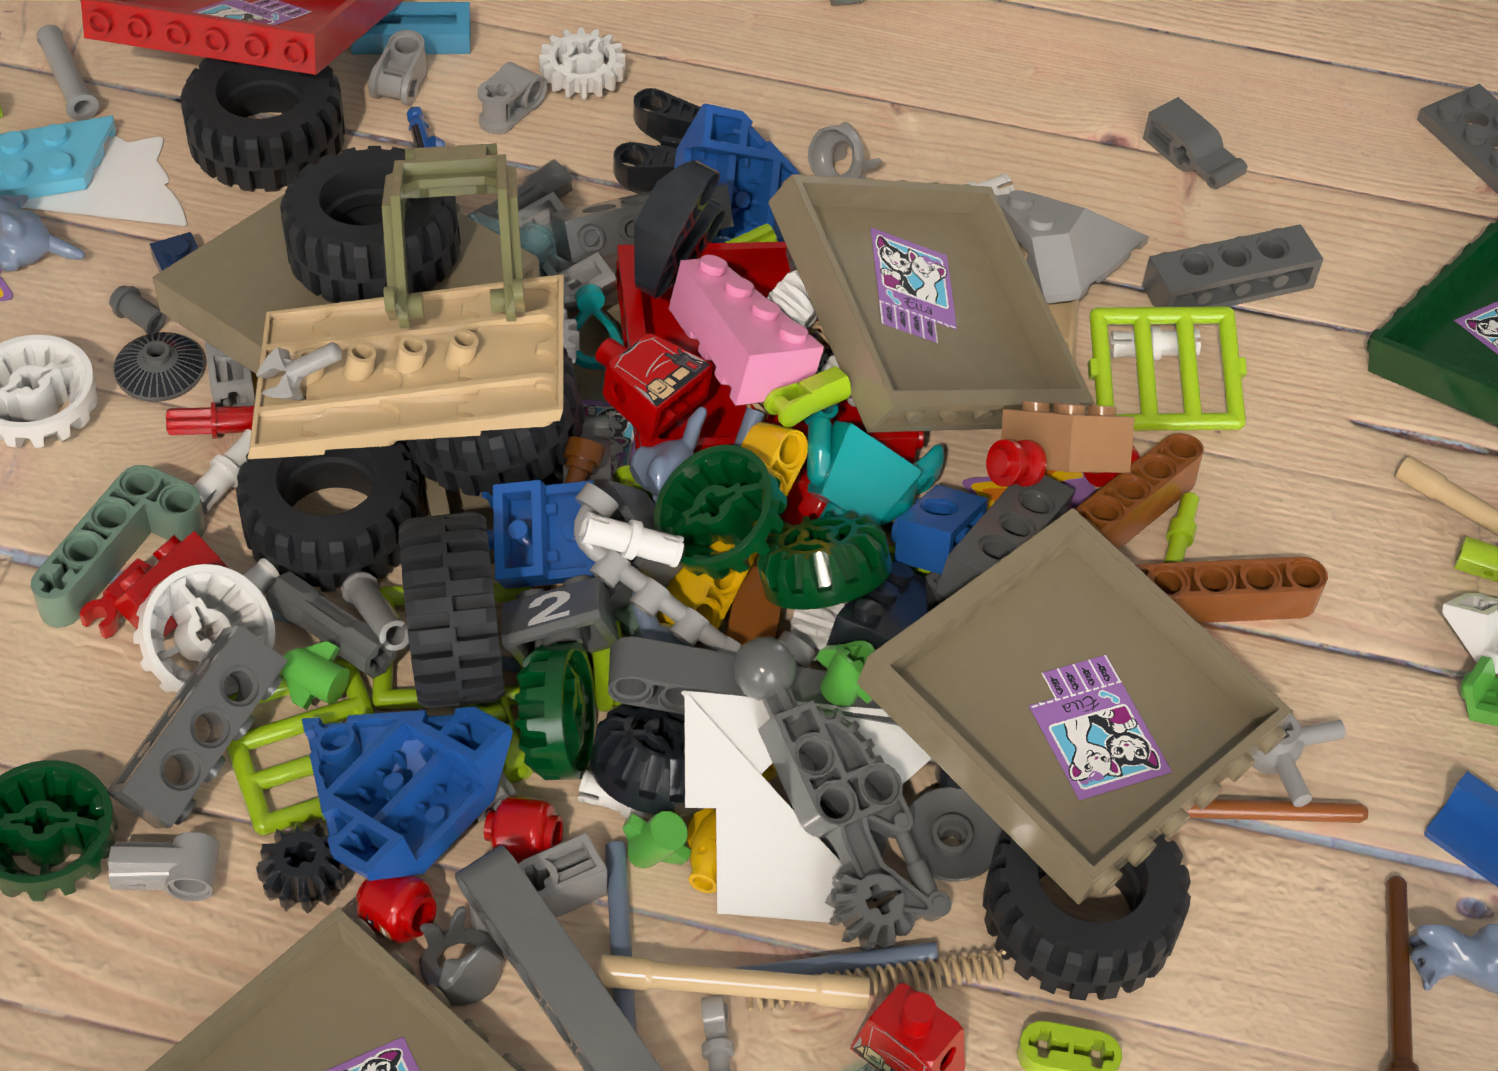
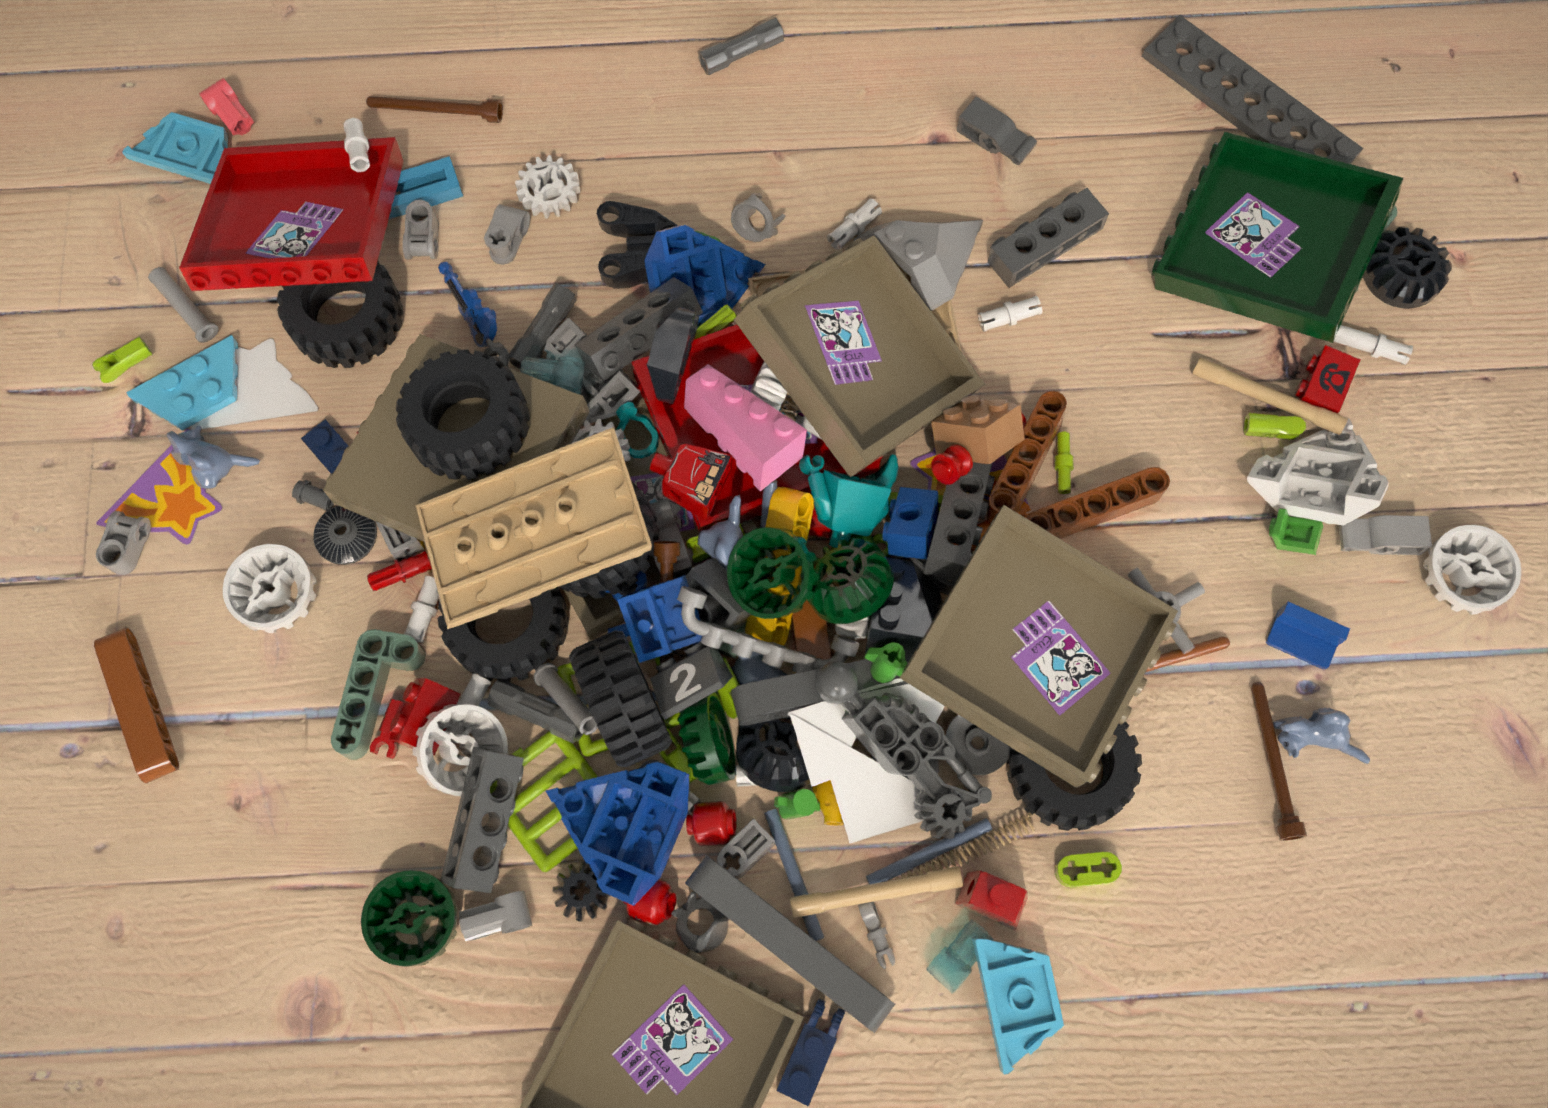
camera: 10 degrees left, 20 degrees up
(296, 369) = (458, 560): light grey bar -> none
(314, 673) = (541, 754): bright green piece -> none
(450, 173) = (506, 370): olive piece -> none
(631, 539) = (723, 618): white pin -> none
(808, 396) = (806, 461): lime bar -> none
(1184, 317) = (1048, 365): lime bar -> none

